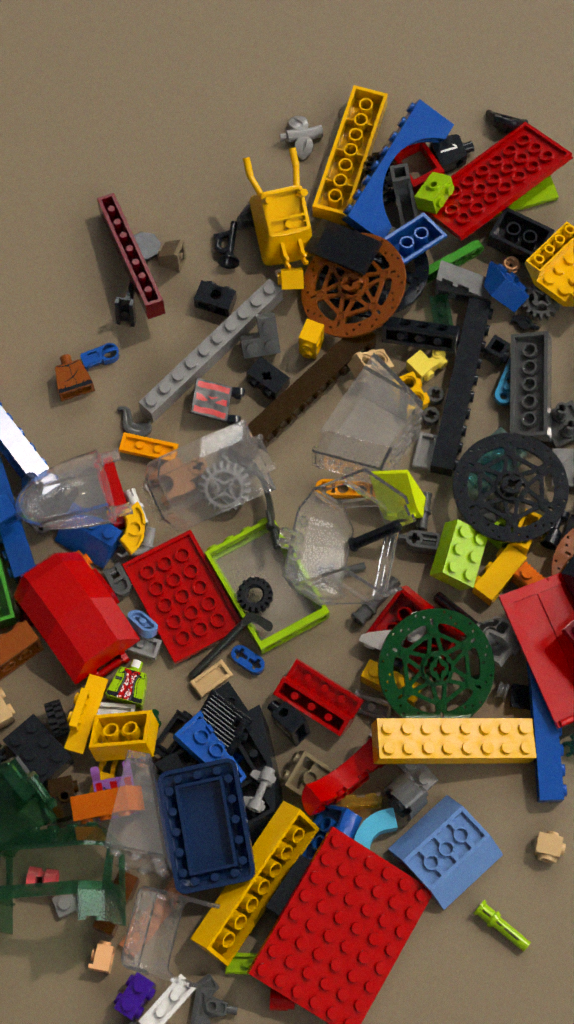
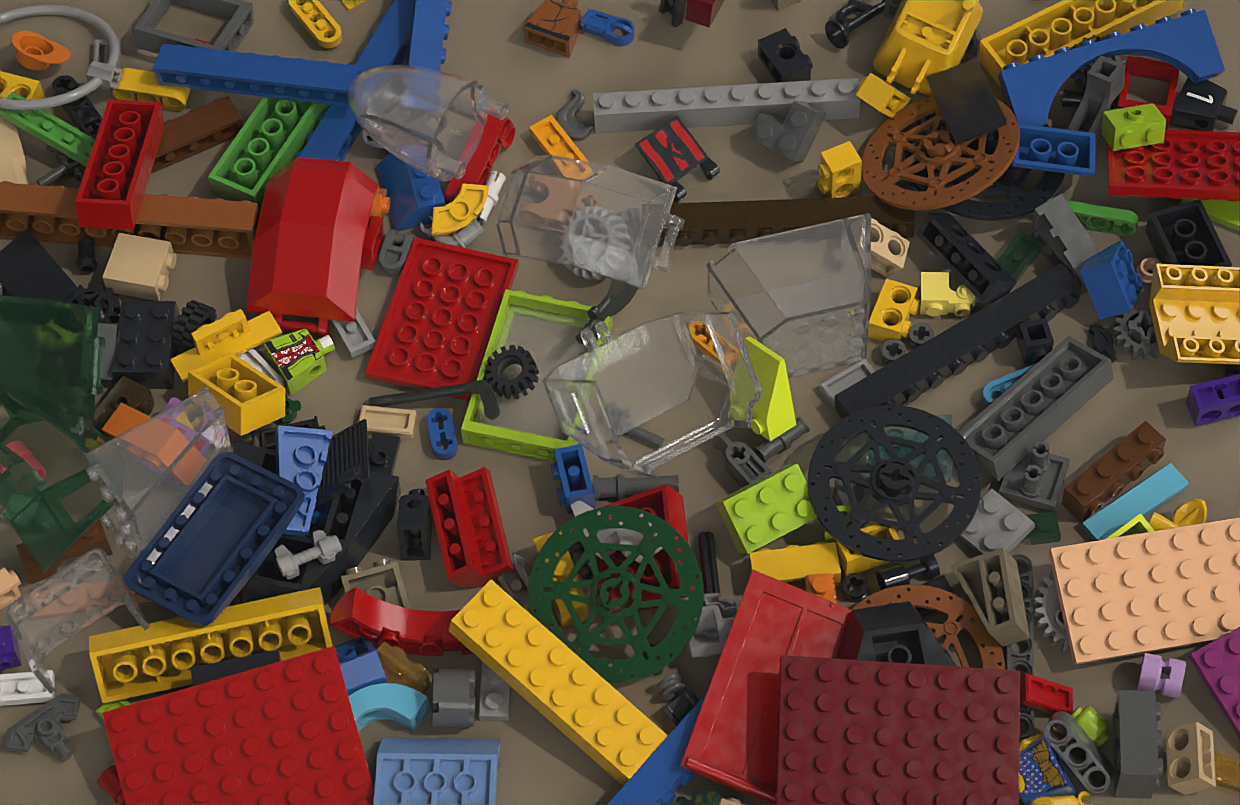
camera: 45 degrees right, 10 degrees down
(142, 623) = (372, 309): medium blue plate -> none
(264, 370) = (754, 174): black brick -> none
(345, 624) = (574, 477): none -> blue brick
(374, 535) = (673, 411): black axle -> none
(541, 557) = (856, 579): none -> black bush

